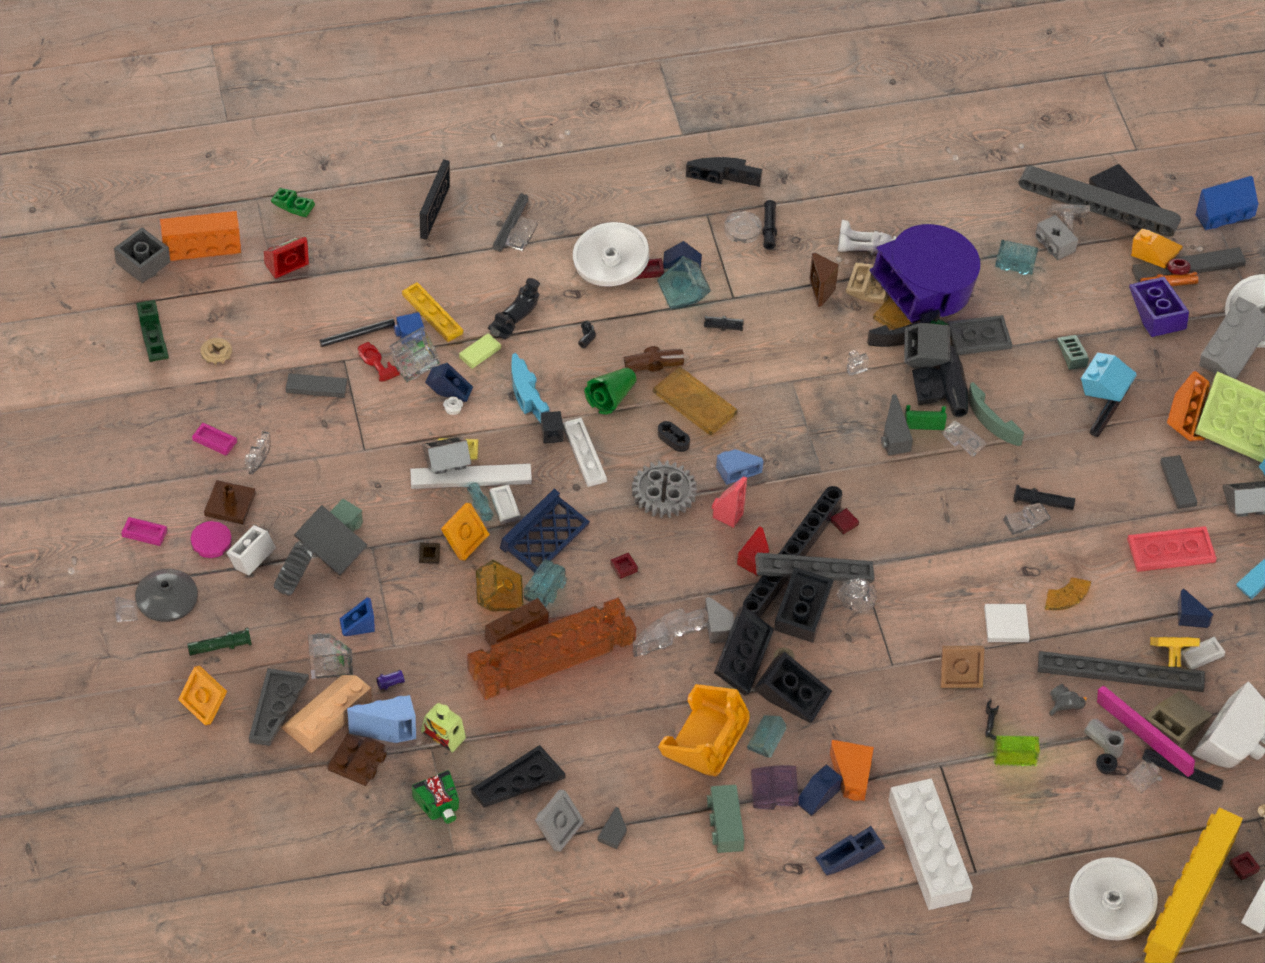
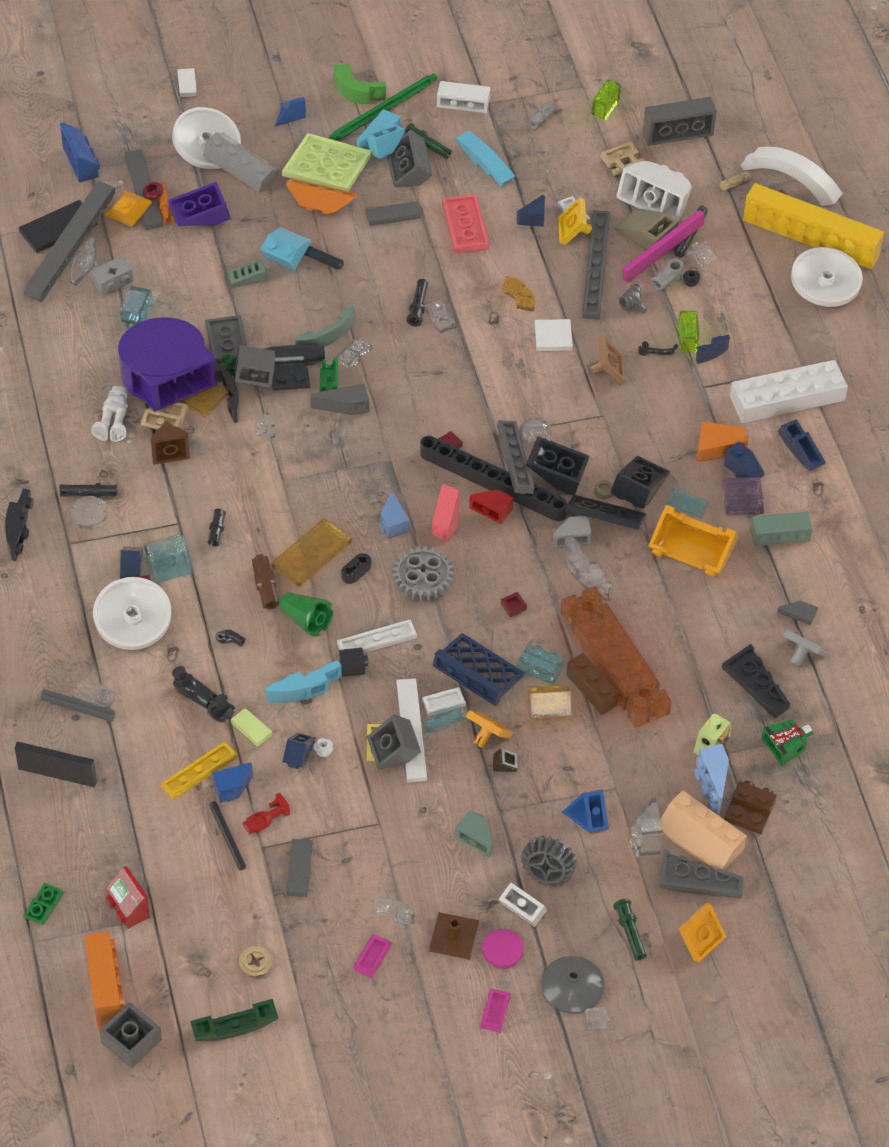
camera: 90 degrees left, 0 degrees up
(331, 540) = (506, 836): dark grey tile -> none
(391, 679) = (662, 789): dark purple pin -> none
(414, 354) = (267, 774): clear slope -> none
(994, 776) = (716, 348): none -> dark blue slope

